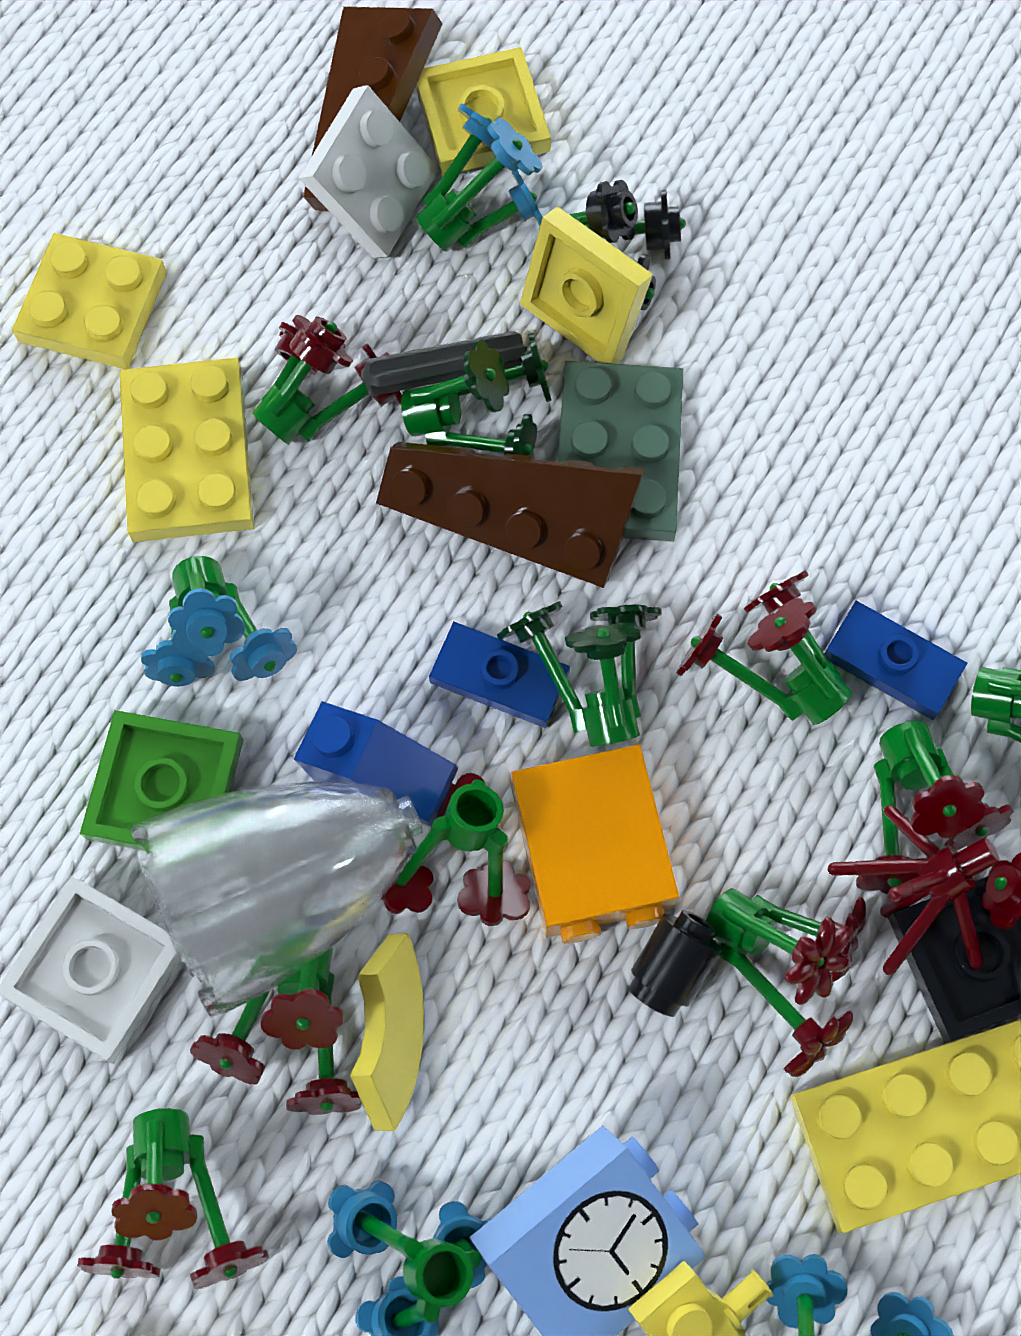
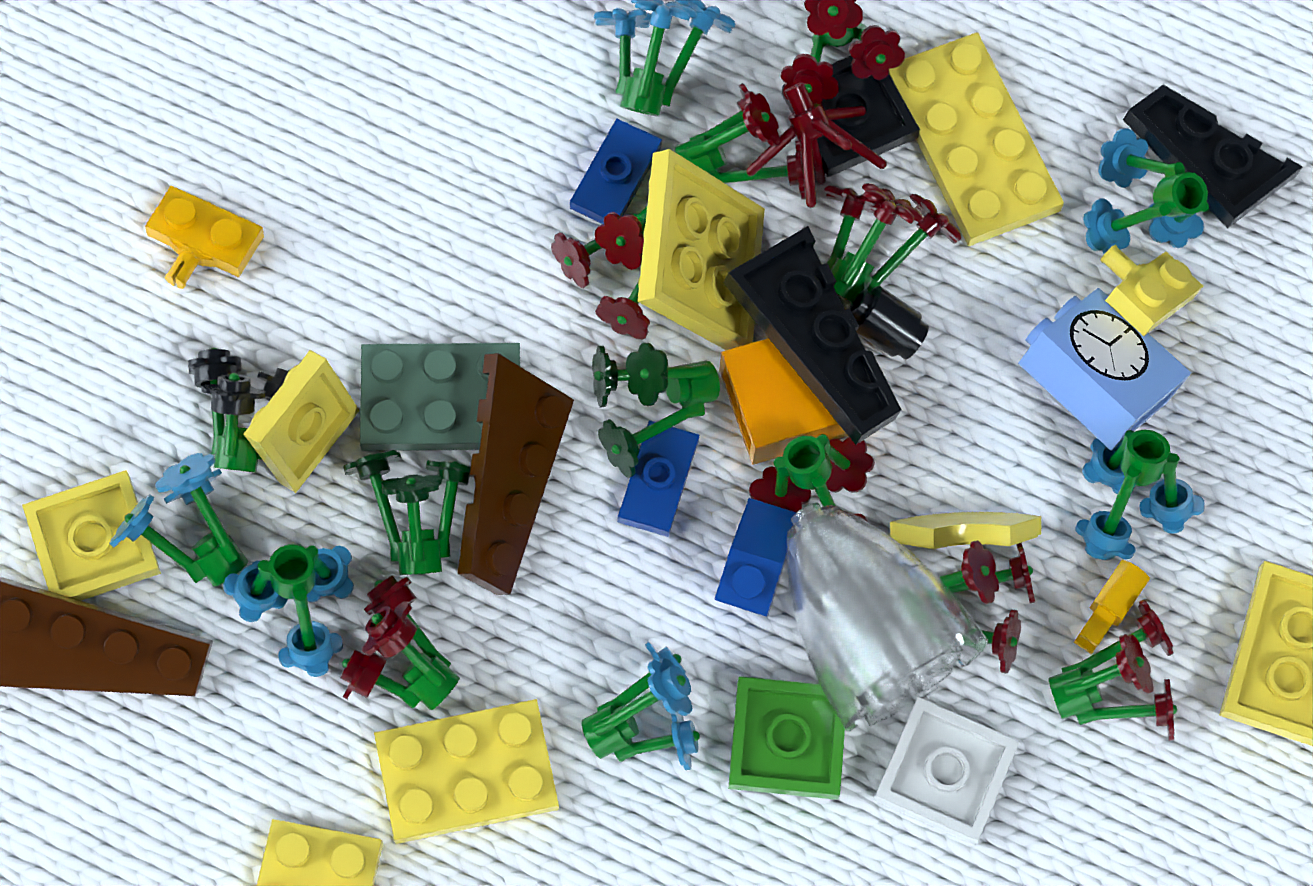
camera: 100 degrees left, 0 degrees up
(272, 1214) = (1112, 603): none -> yellow bar
(369, 172) = (180, 623): white plate -> none
(396, 252) = (305, 578): none -> dark azure plant
(434, 363) = (378, 540): dark grey axle -> none
(667, 845) = (805, 320): none -> black wing
(769, 724) = (691, 241): none -> light yellow plate
(821, 223) = (202, 235): none -> yellow plate

